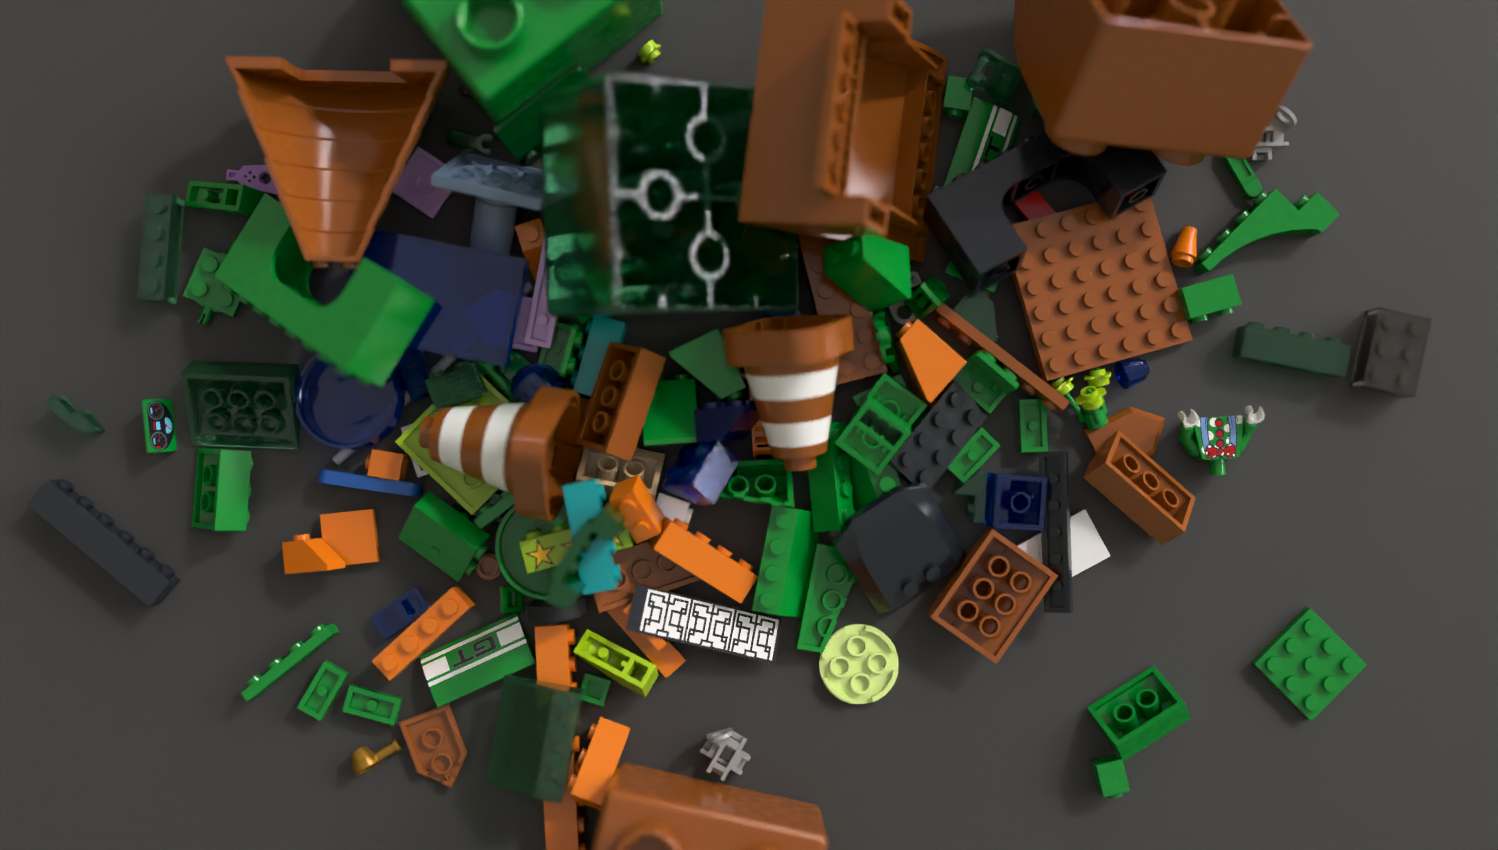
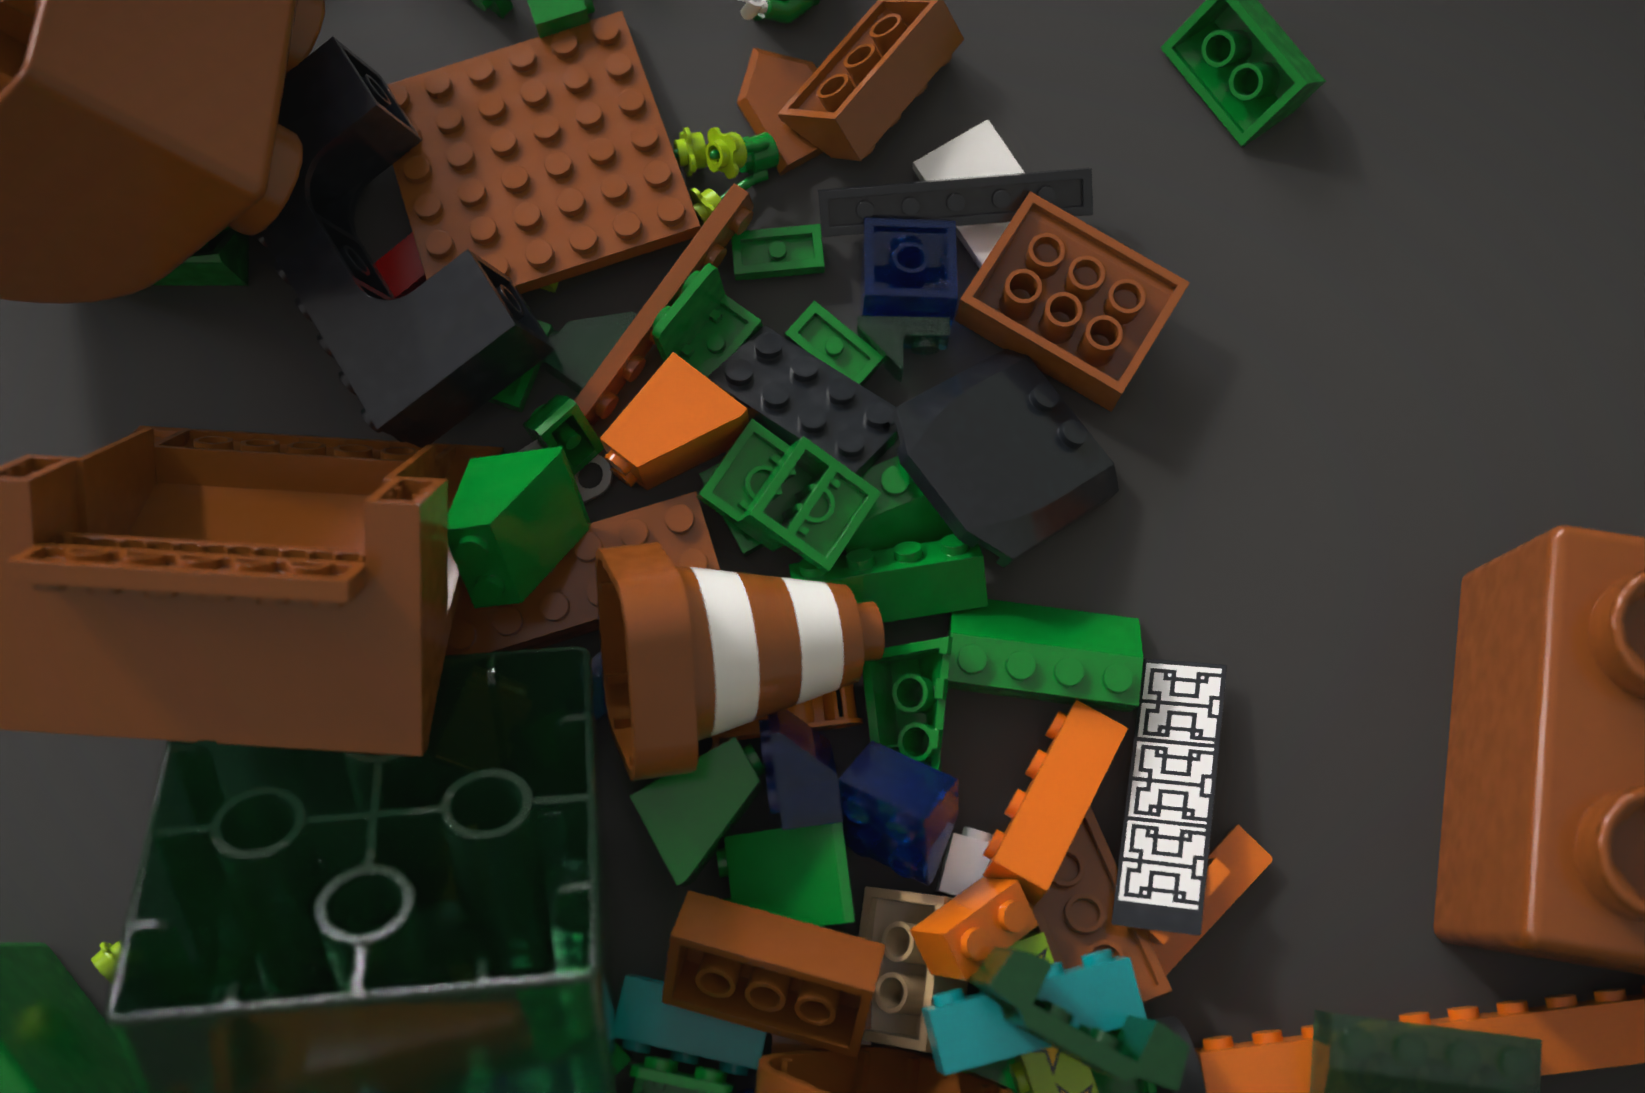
camera: 90 degrees left, 10 degrees down
(595, 688) = (1307, 989): green plate -> none
(598, 762) = (1449, 974): orange brick -> none
(617, 663) = (1257, 952): lime slope -> none
(722, 750) = (1387, 750): light grey piece -> none
(824, 597) = (1098, 583): green wing -> none
(859, 664) = (1209, 520): yellowish green tile -> none
(885, 340) = (639, 496): green tile -> none
(956, 98) = (209, 403): green brick -> none
(982, 137) = (279, 358): green slope -> none
(1002, 81) = (175, 325): clear green plate -> none
(1110, 776) = (1351, 101): green brick -> none
(1131, 372) = (679, 101): clear blue hat -> none
(1185, 248) = (470, 28): orange cone -> none

